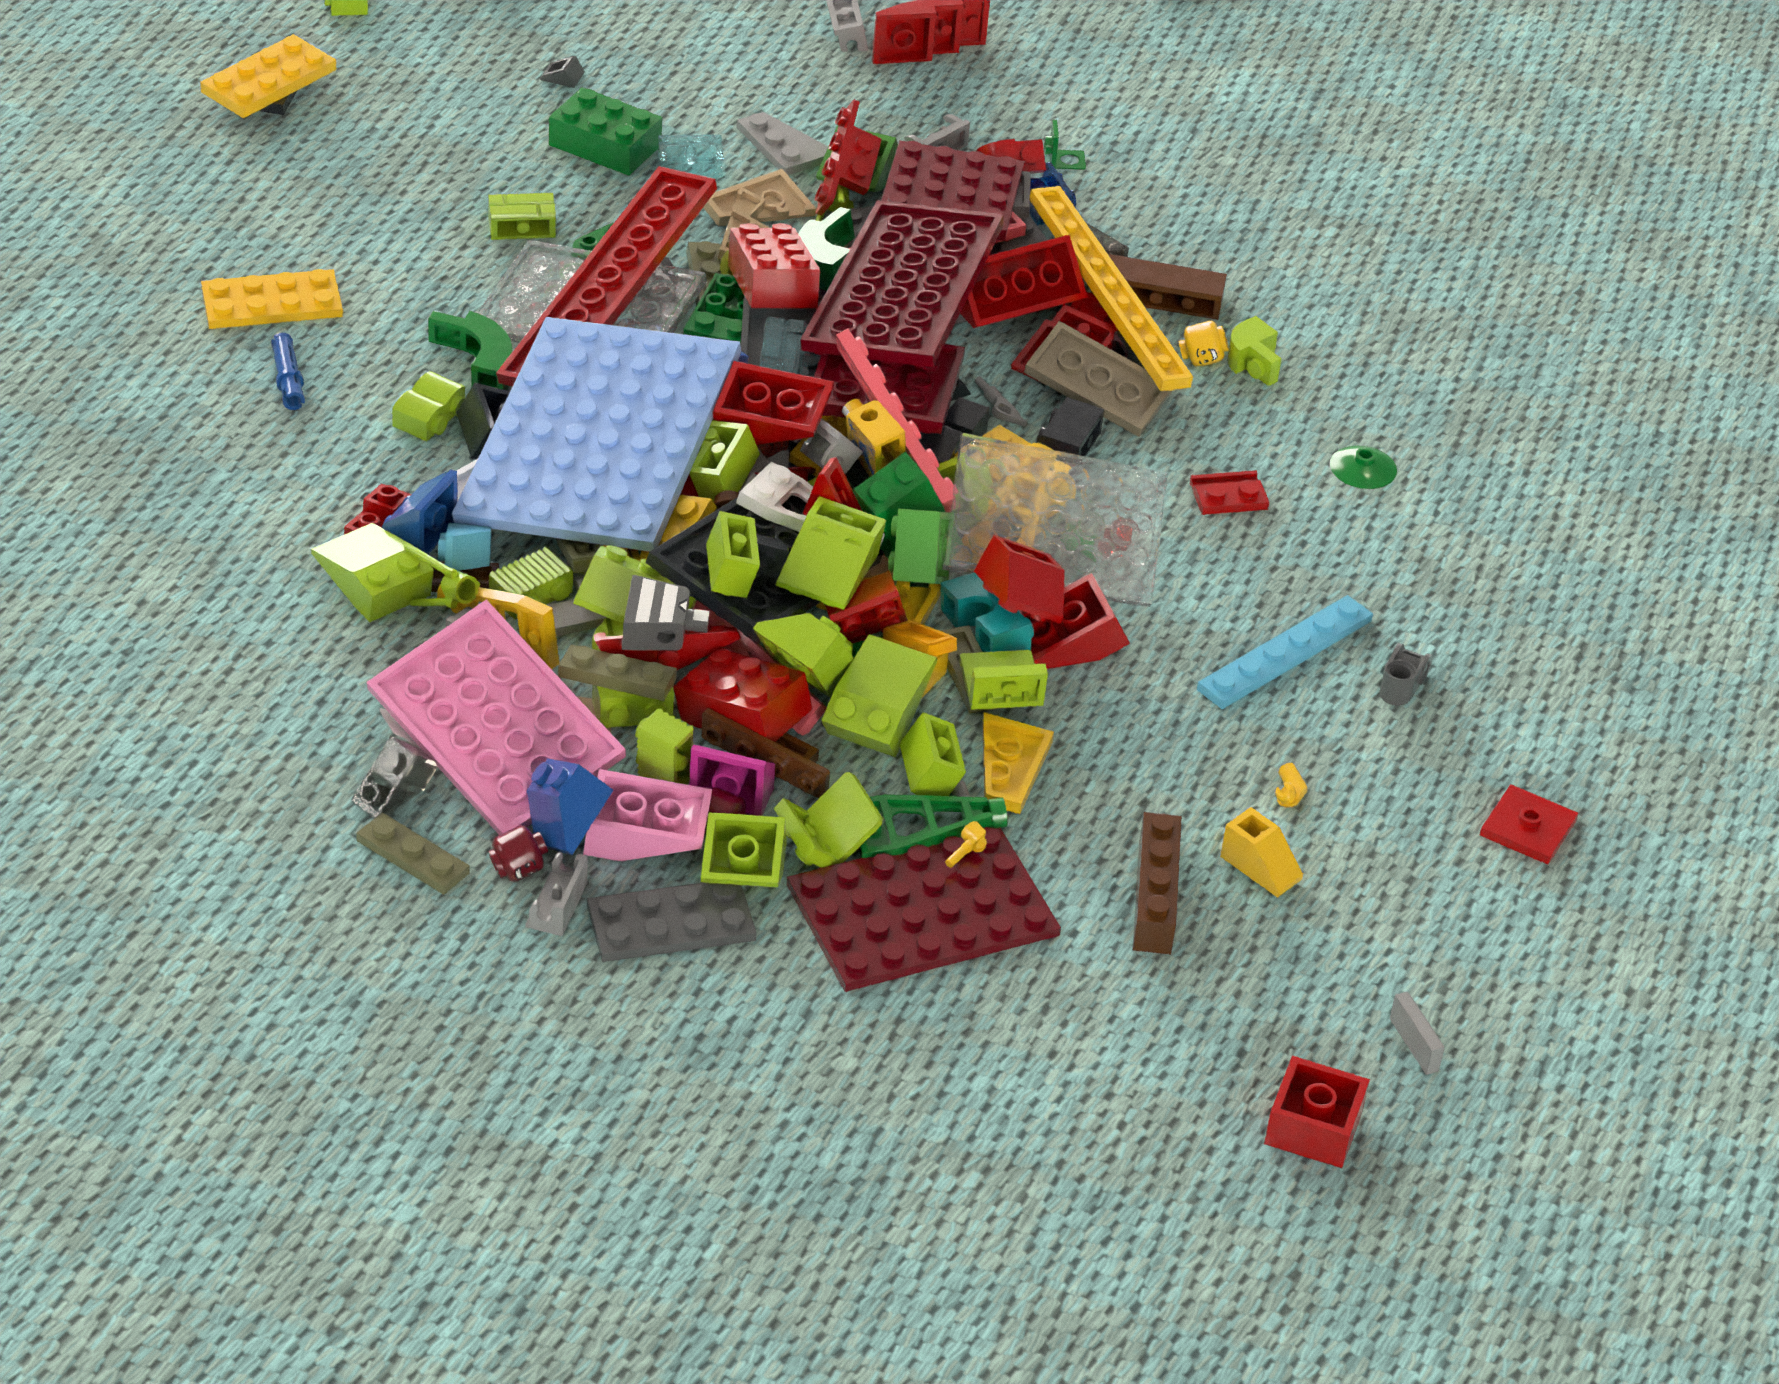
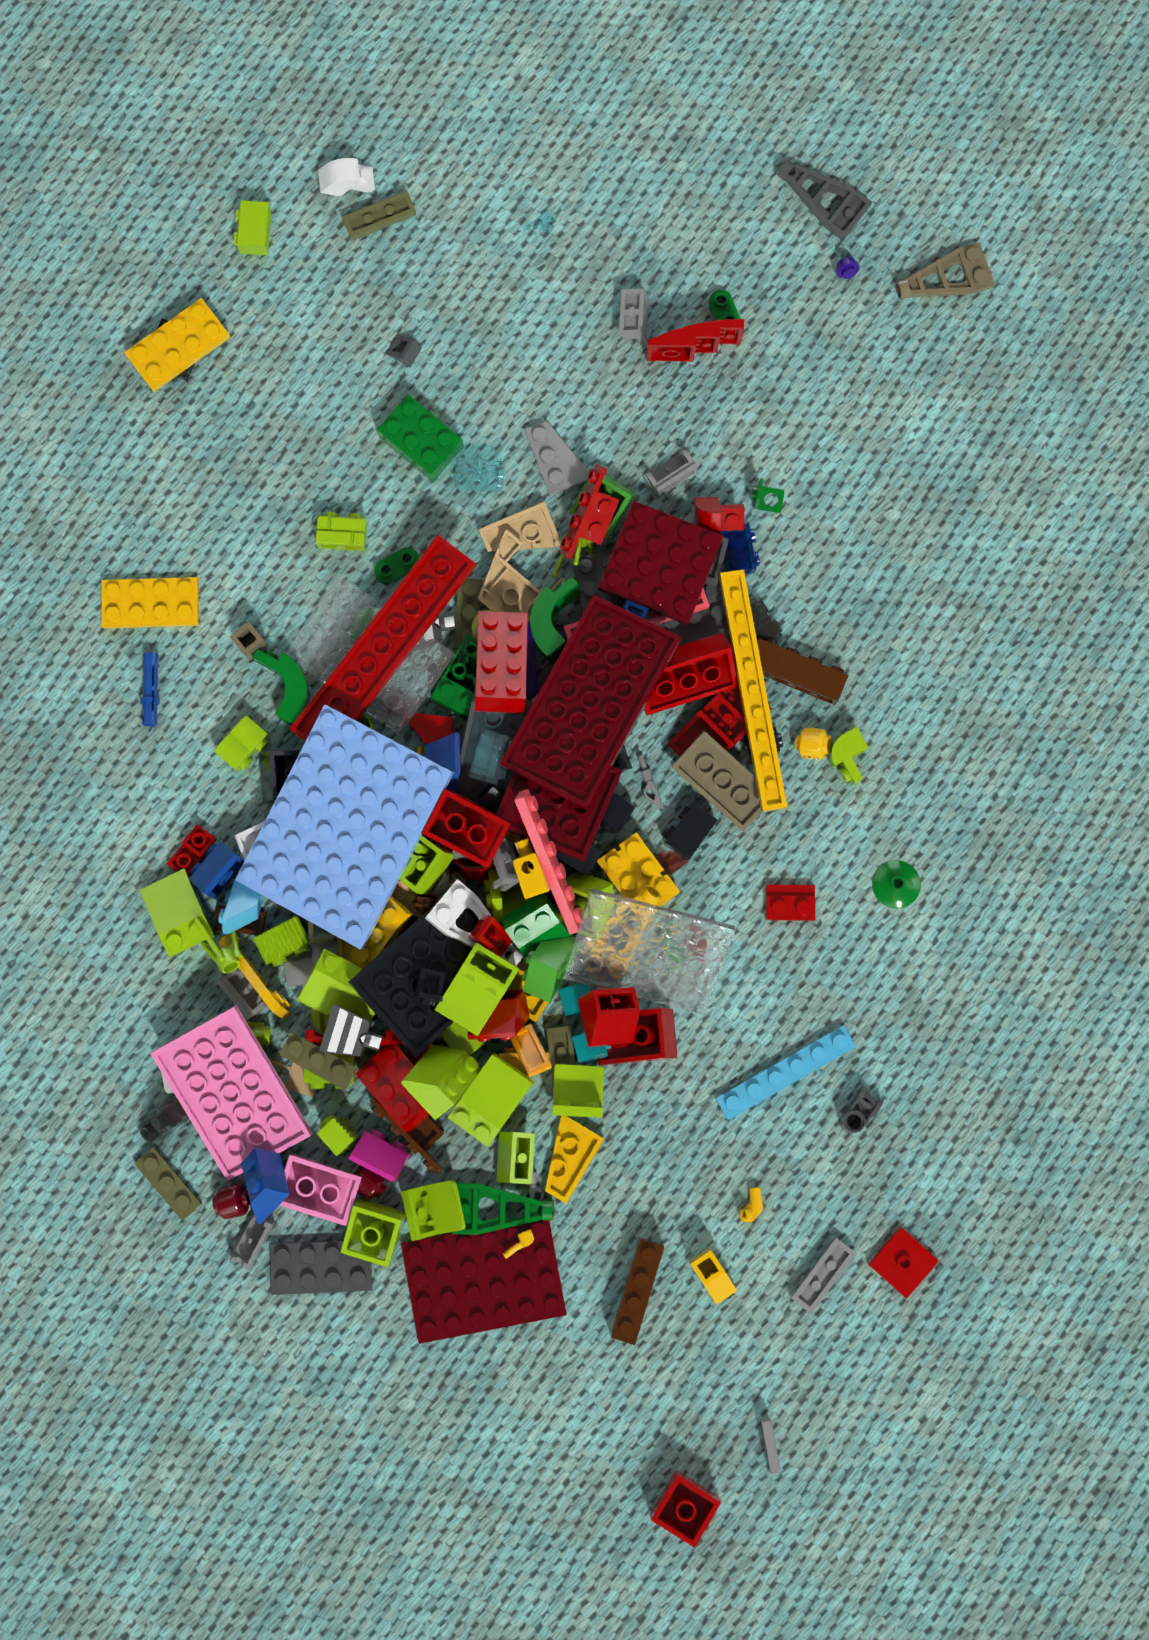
camera: 15 degrees right, 40 degrees up
(415, 306) = (248, 640): none -> dark tan brick
(732, 554) = (403, 1000): lime brick -> none
(1420, 845) = (823, 1275): none -> light grey plate

